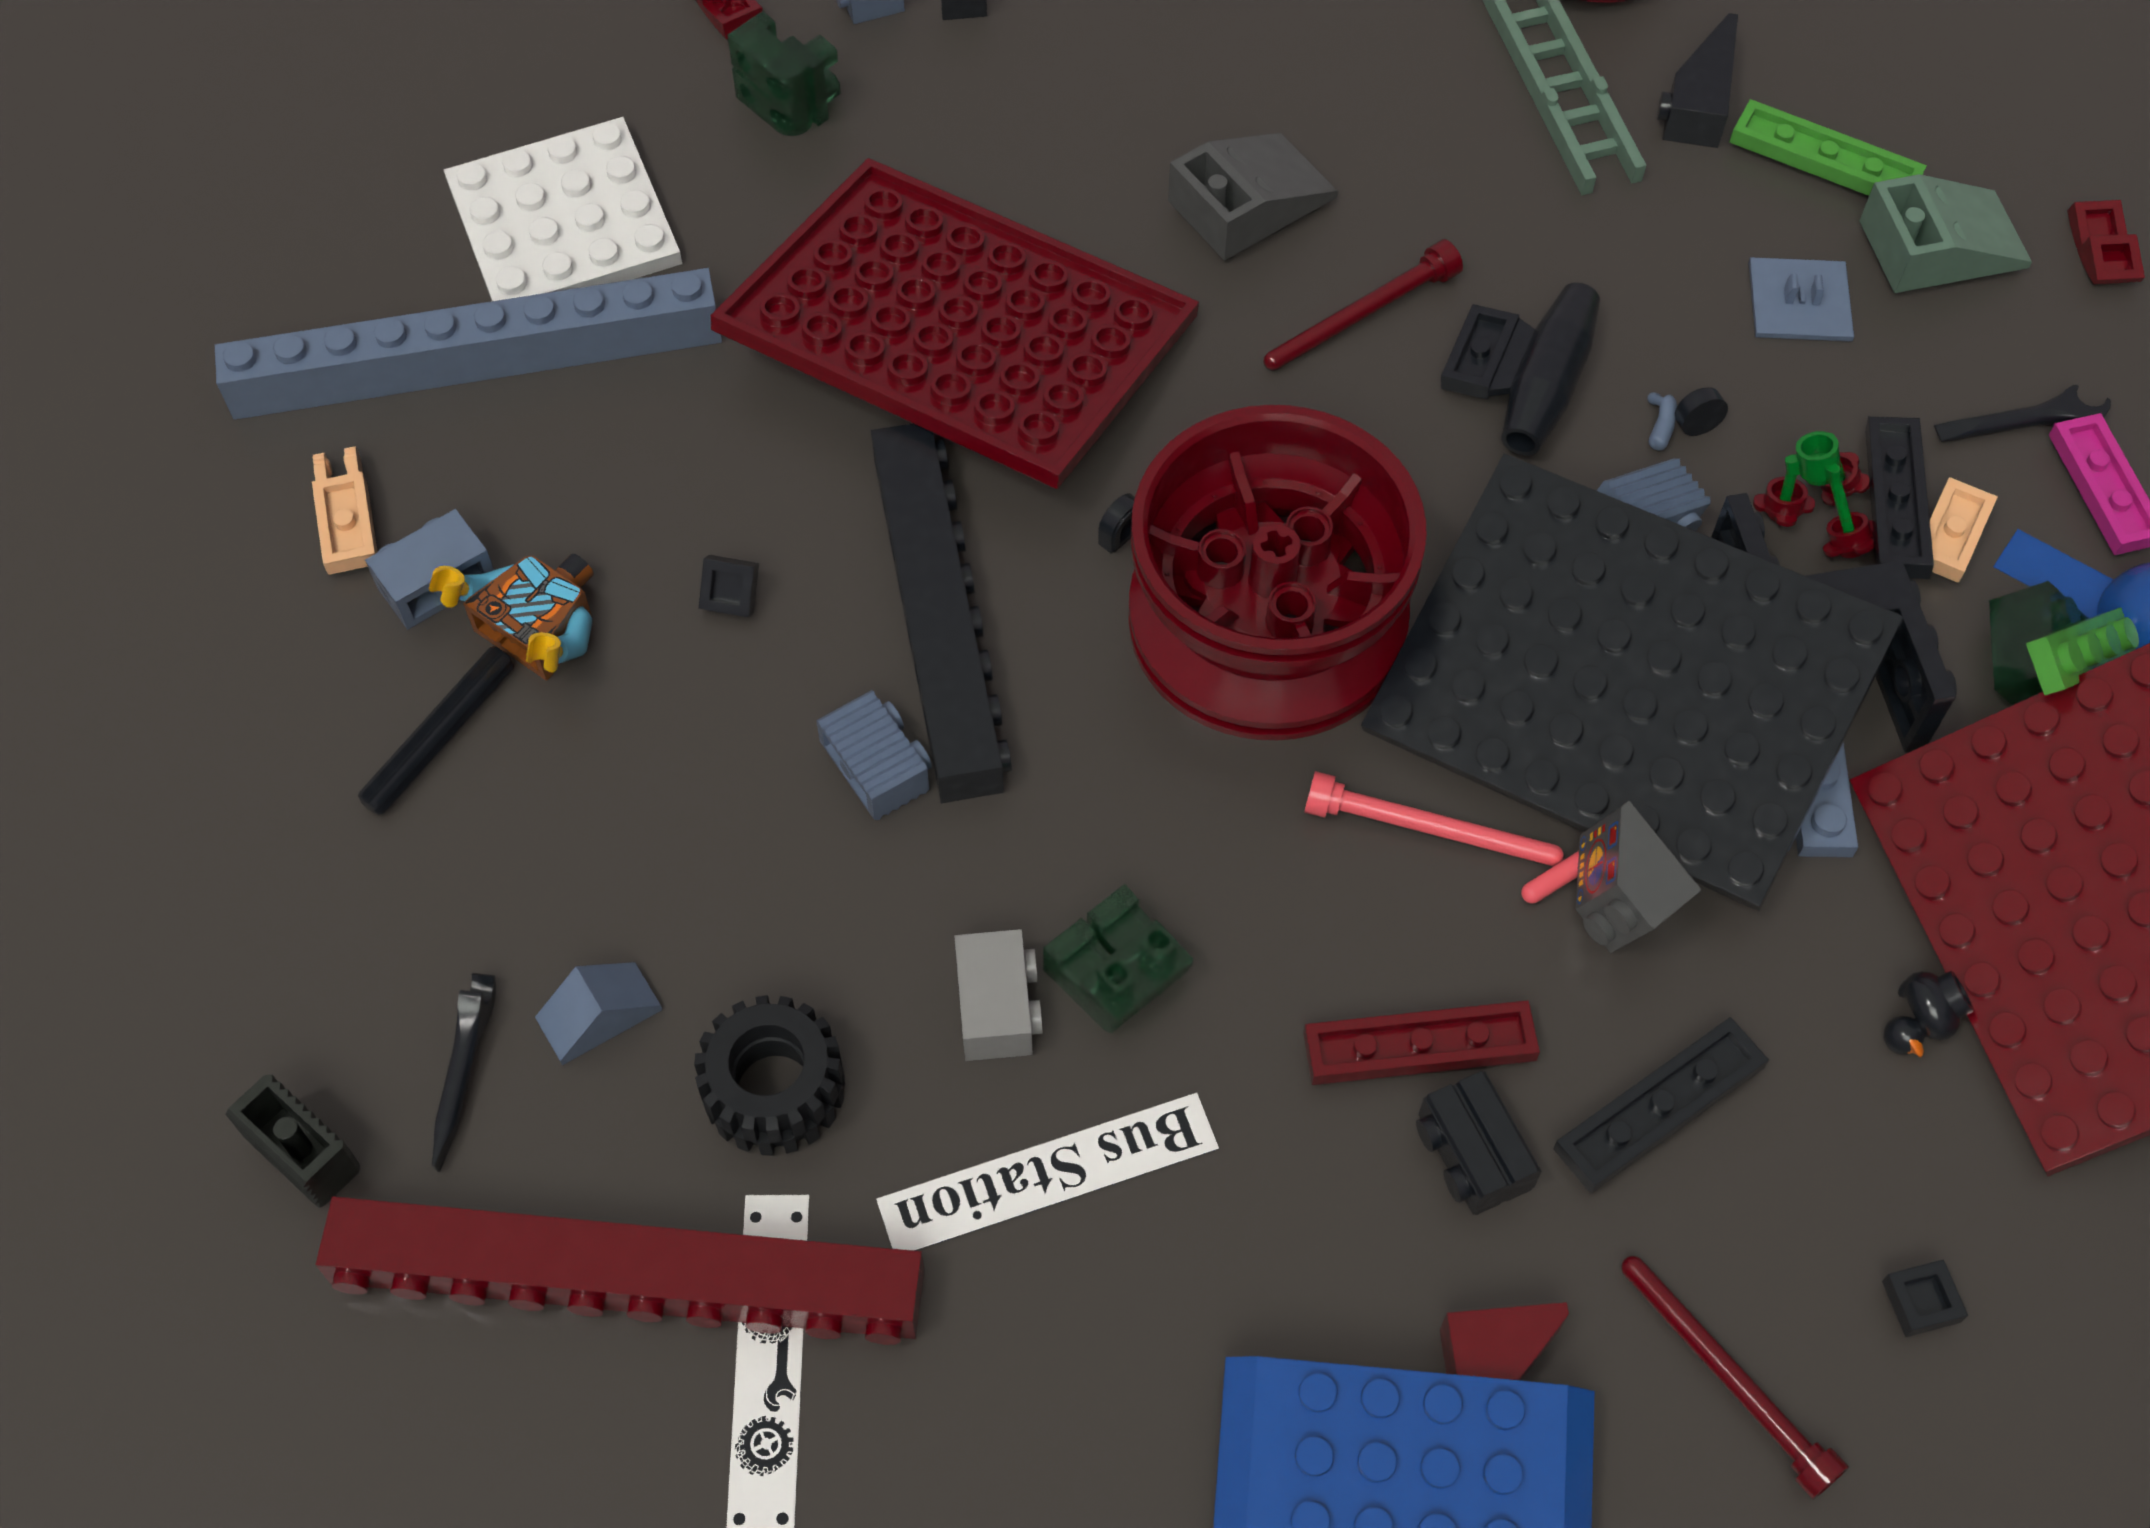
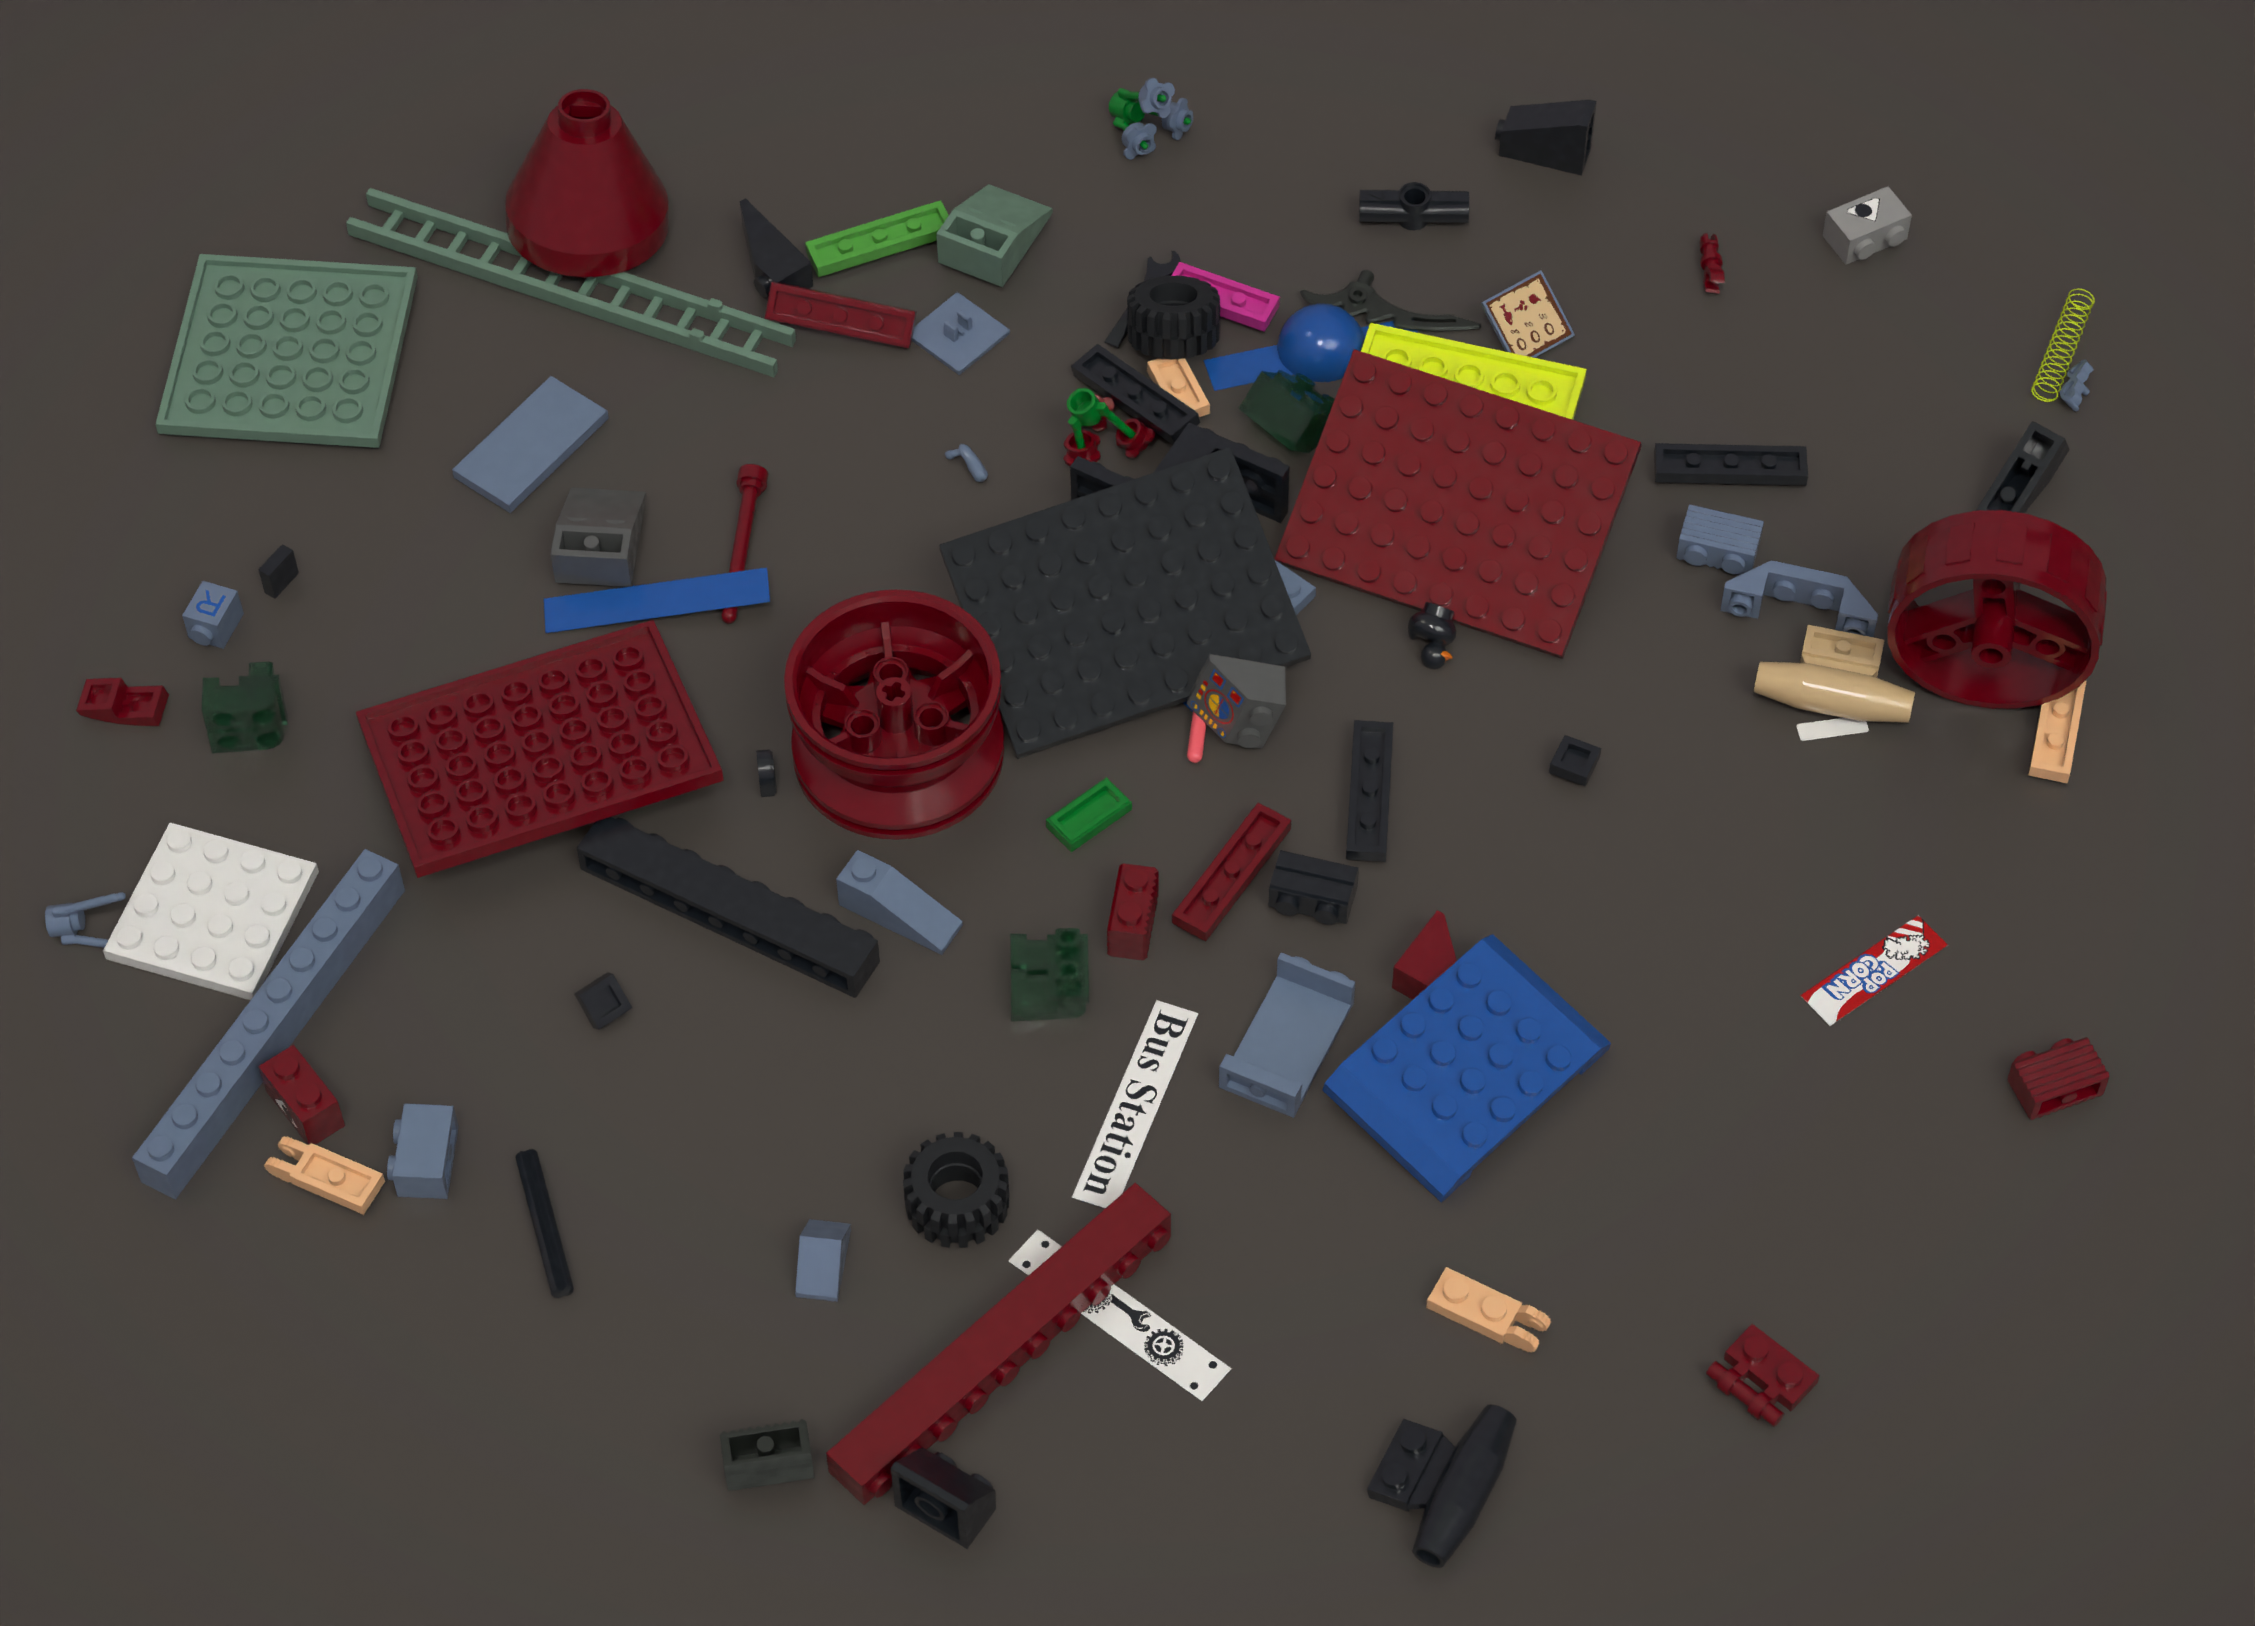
camera: 50 degrees left, 5 degrees down
(373, 1355) = (942, 1495): none -> black slope
(408, 426) = (301, 1095): none -> dark red brick
(459, 124) = (68, 918): none -> sand blue plant
(473, 1014) = (765, 1321): black piece -> none
(525, 609) = (516, 1116): torso -> none
(874, 754) = (796, 1003): sand blue brick -> none
(994, 994) = (1010, 1049): light grey brick -> none
(1076, 753) = (895, 903): none -> sand blue slope
(1231, 292) = (656, 600): none -> blue sticker
(1268, 1269) = (1289, 1035): none -> sand blue panel
(1271, 982) = (1132, 911): none -> dark red brick
(1298, 71) = (530, 444): none -> sand blue tile
(1330, 796) = (1045, 803): coral piece -> none
(1360, 848) = (1088, 814): none -> green tile
(1535, 366) = (874, 489): black plate -> none
(1663, 491) = (1024, 496): sand blue brick -> none
(1701, 411) = (985, 439): black tile -> none
(1703, 187) = (840, 314): none -> dark red tile
(1814, 1465) = (1610, 875): dark red piece -> none
(2025, 456) = (1173, 317): none -> black tyre
(2080, 648) = (1316, 389): bright green plate -> none
(2103, 242) = (1077, 168): dark red slope -> none

